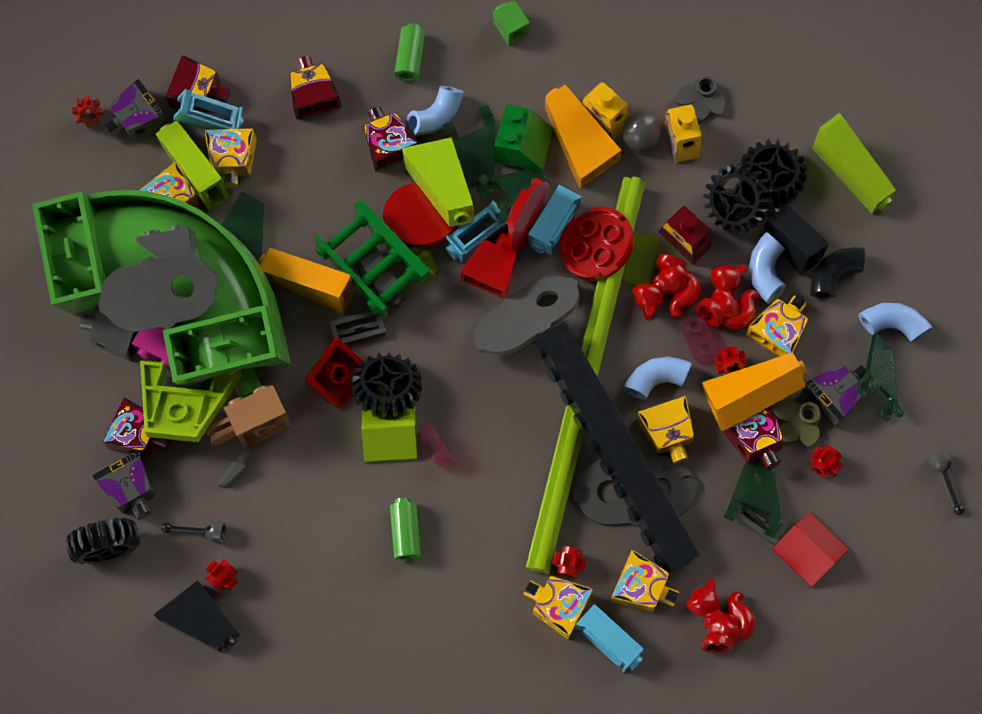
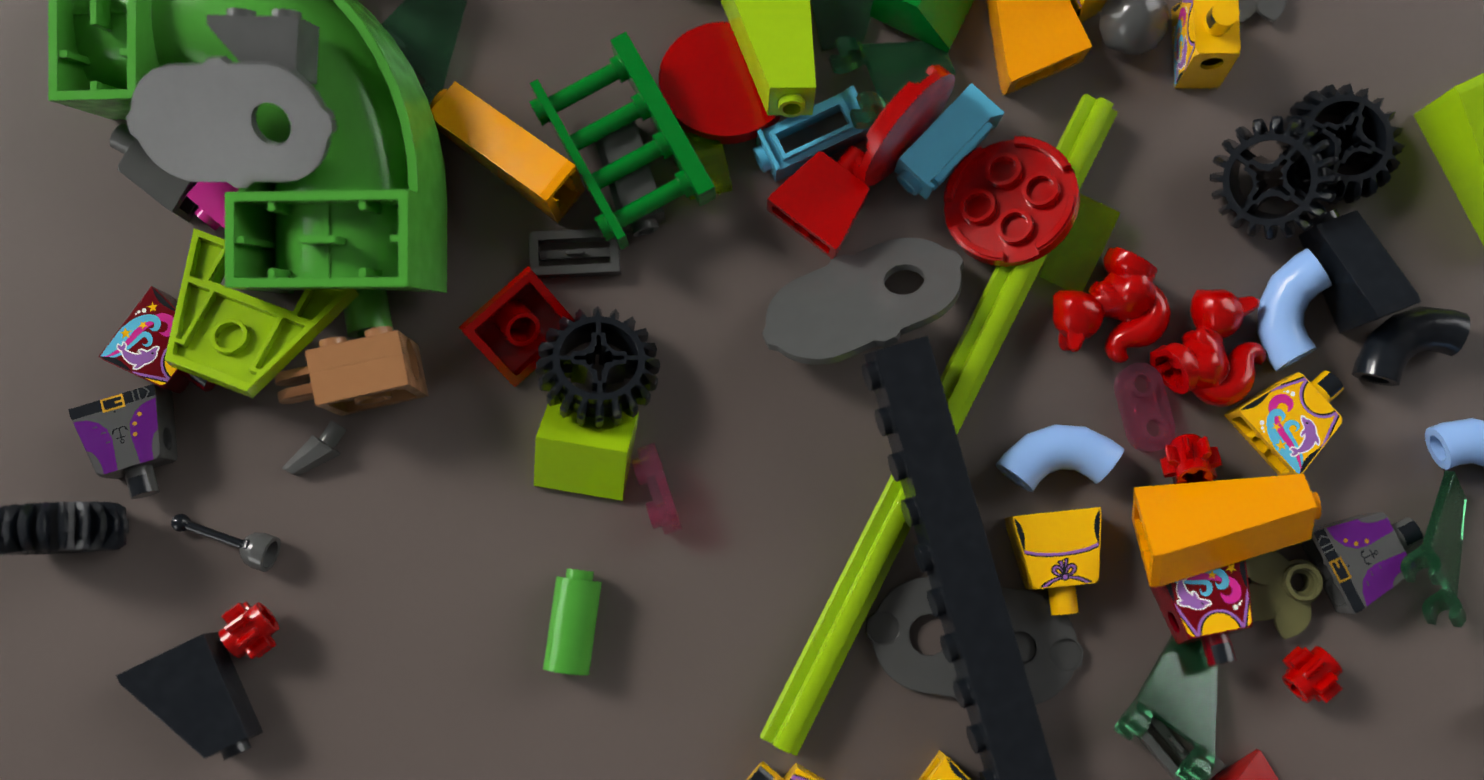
camera: 10 degrees right, 10 degrees up
(569, 562) = (835, 746): red gear -> none
(685, 232) = (1169, 219): dark red torso -> none

